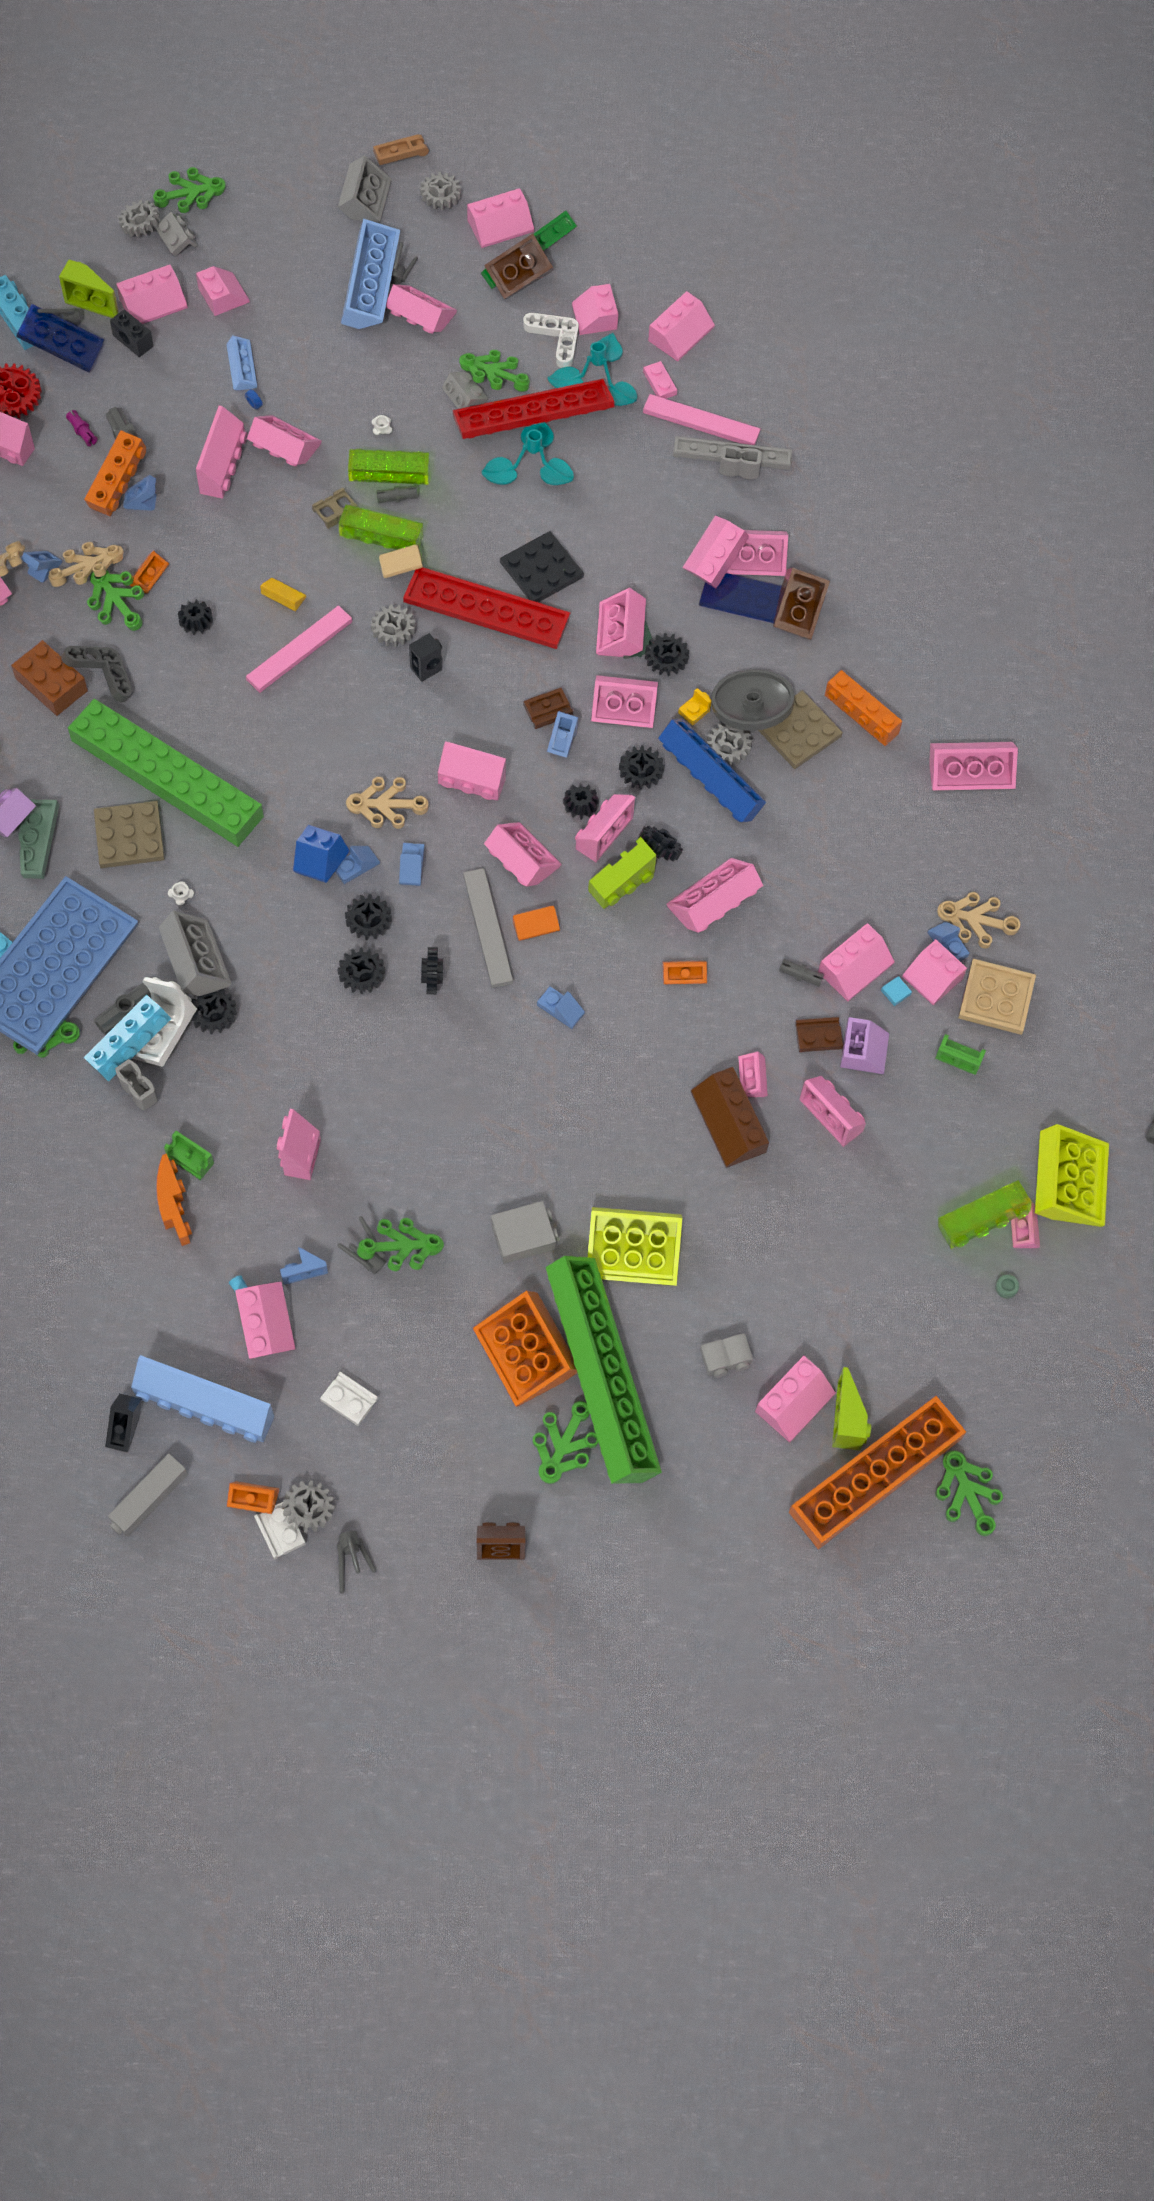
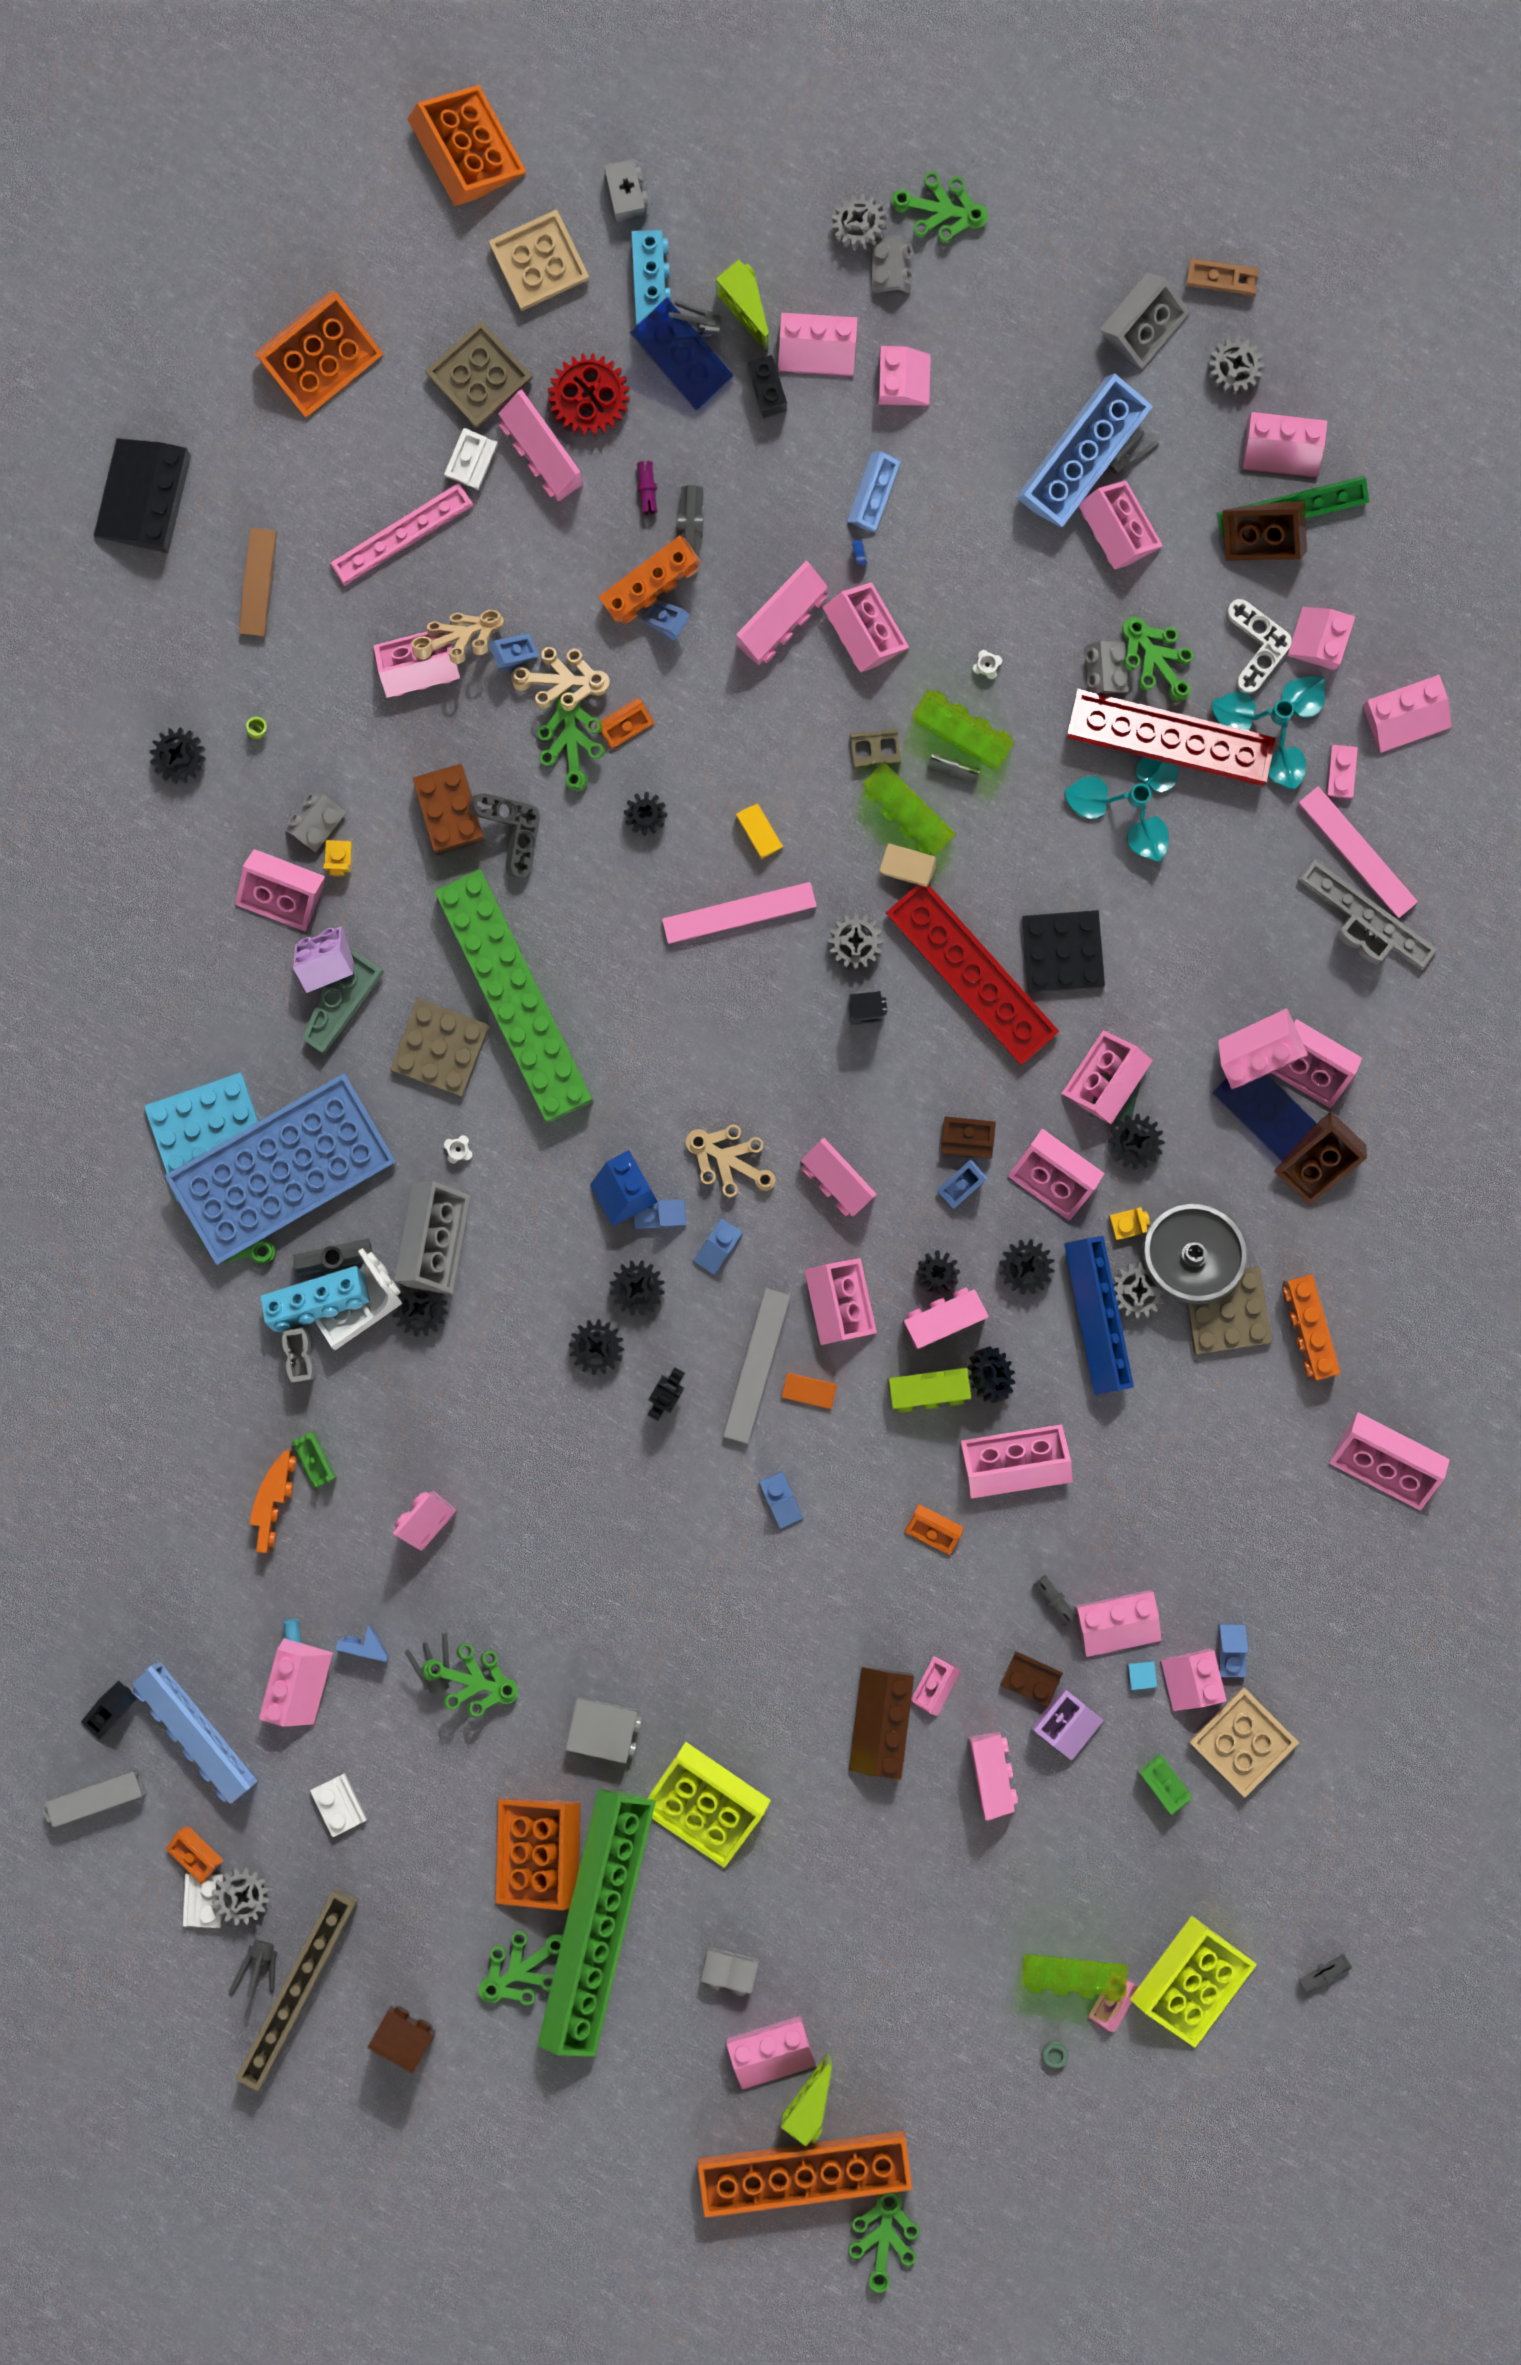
camera: 30 degrees right, 20 degrees up
(394, 1552) = (296, 1989): none -> dark tan brick
(975, 918) = (1277, 1638): tan plant -> none

